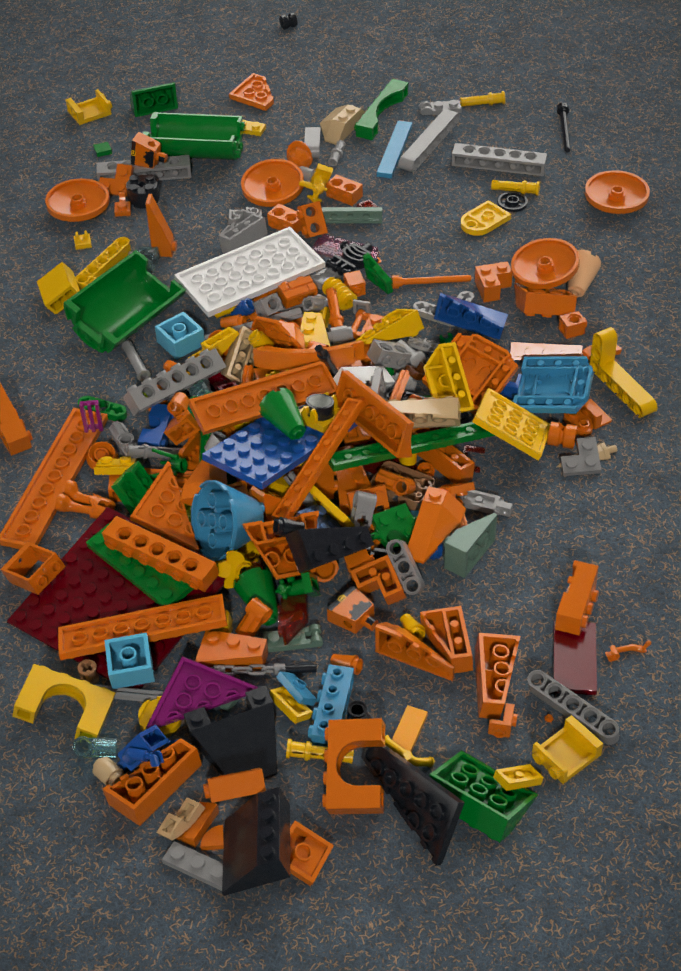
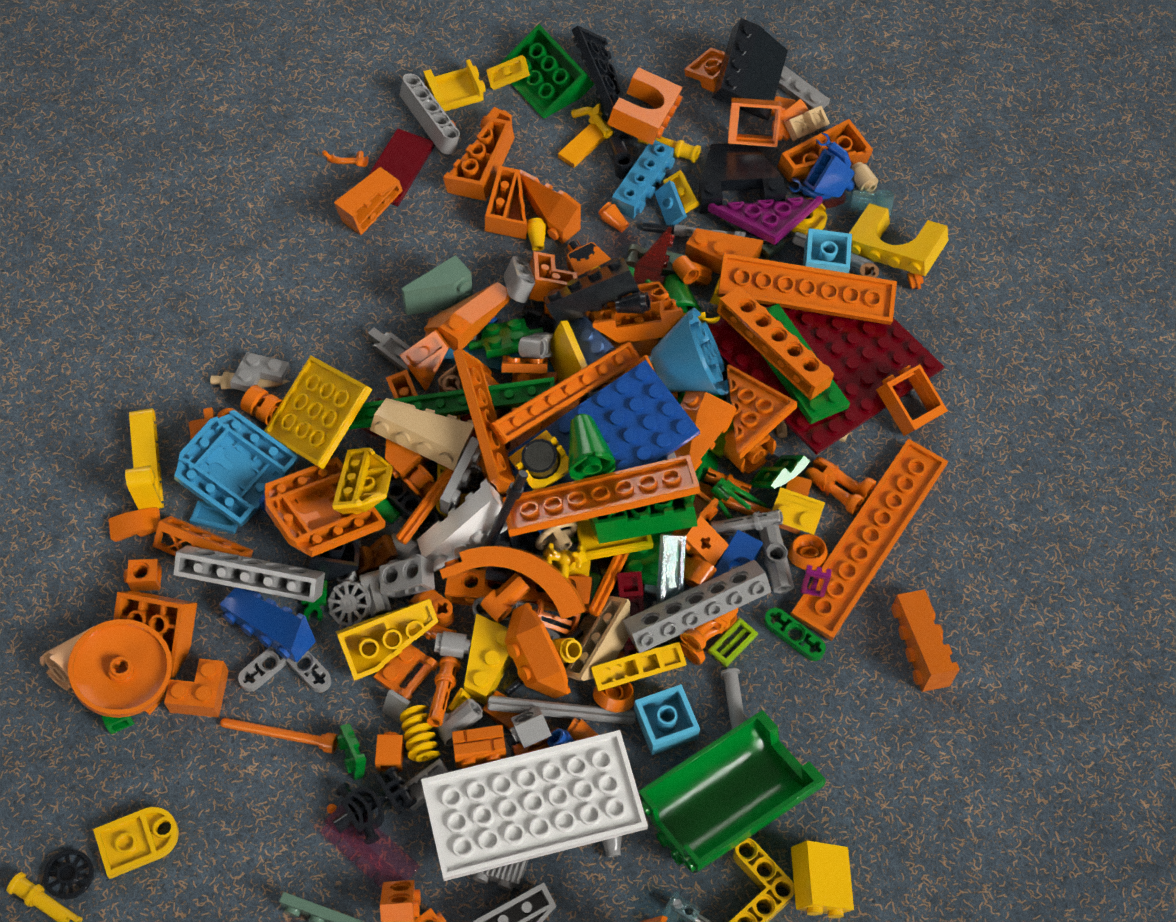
camera: 165 degrees left, 15 degrees up
(542, 322) = (249, 573): none -> light grey brick

